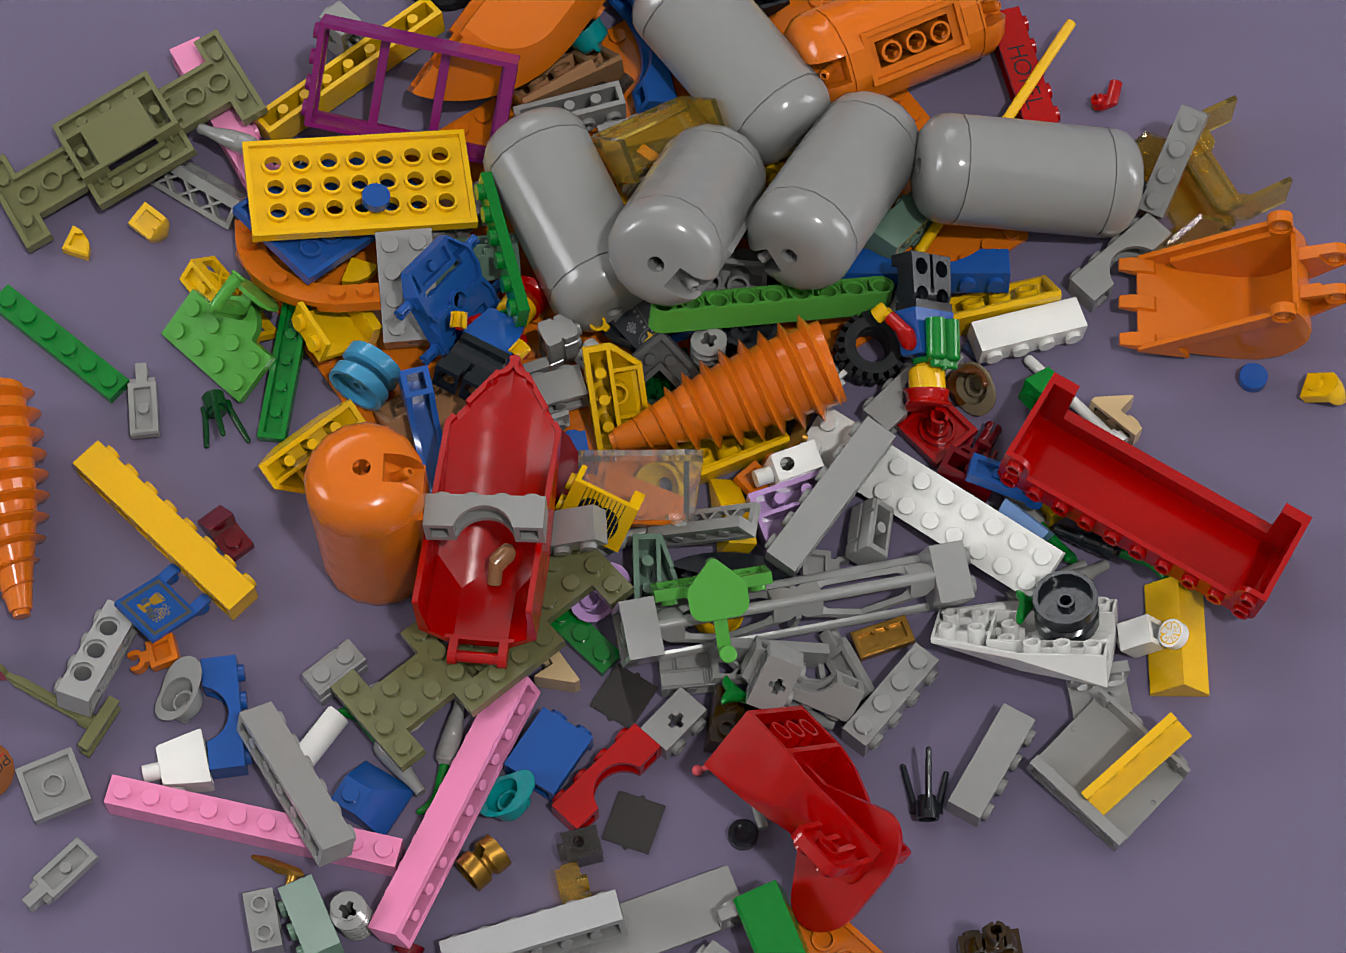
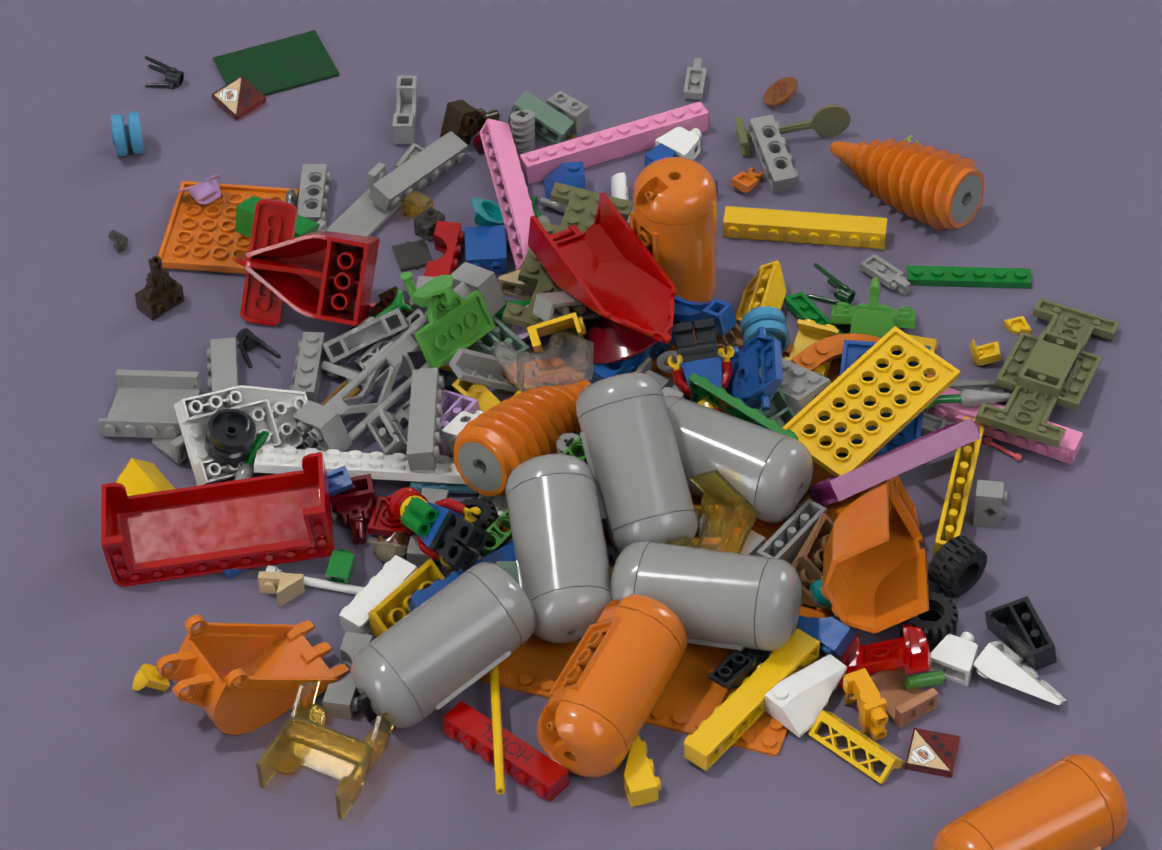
camera: 145 degrees right, 20 degrees down
(53, 785) = (738, 104): light grey plate -> none
(158, 608) = (766, 188): blue flag -> none
(180, 693) = (714, 164): light grey piece -> none
(226, 533) = (775, 248): dark red slope -> none
(296, 783) = (599, 145): light grey brick -> none
(375, 197) = (848, 393): blue tile -> none
(451, 513) = (577, 248): light grey arch -> none
(484, 861) = (477, 185): pearl gold wheel -> none
(498, 562) = (585, 273): medium nougat arm -> none
(775, 677) = (375, 305): light grey brick -> none
(1110, 99) = (439, 779): red arm -> none
(1136, 764) = (135, 402): yellow fence -> none
(1139, 636) = (177, 474): white brick -> none
(1173, 160) = (352, 729): light grey arch -> none
(1173, 634) = (155, 476): white tile -> none

